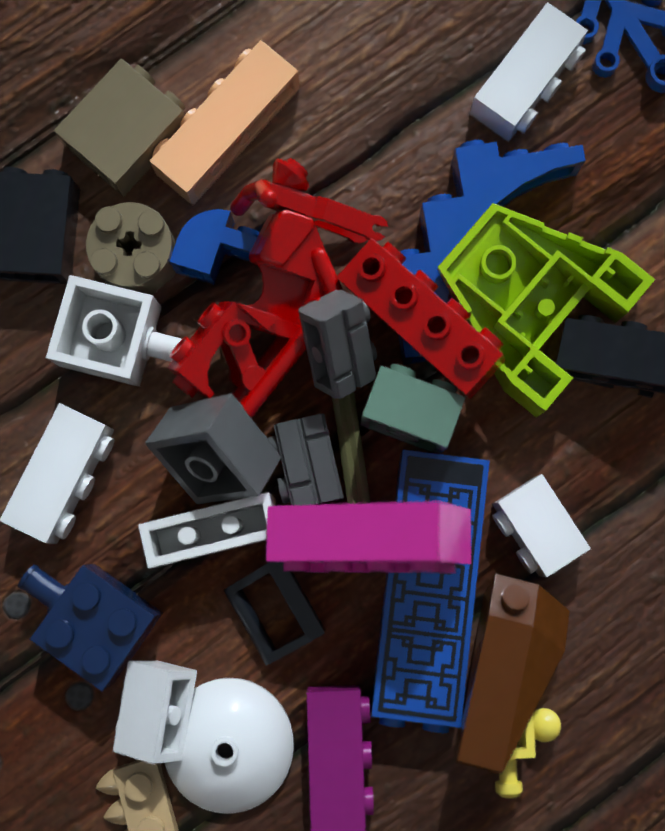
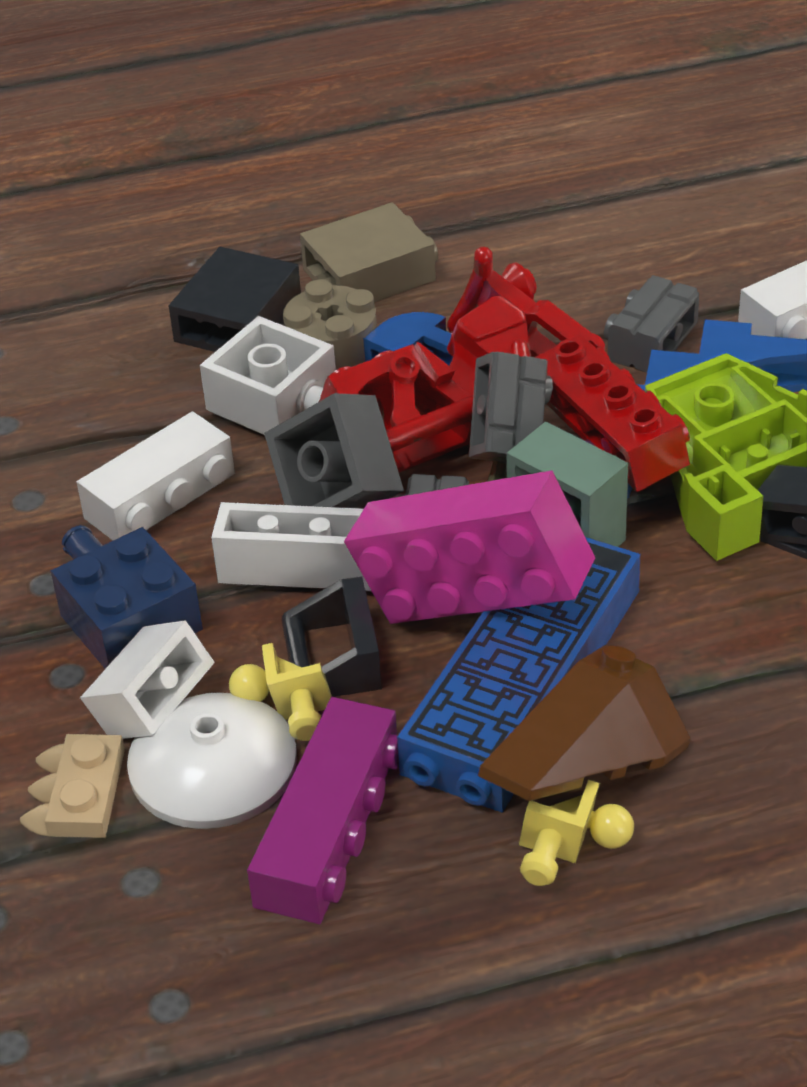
camera: 20 degrees right, 40 degrees down
(225, 122) = (440, 277): light nougat brick -> none
(260, 672) = (294, 689): none -> light yellow piece
(404, 148) = (652, 319): none -> dark grey brick
(539, 527) = (681, 640): white brick -> none

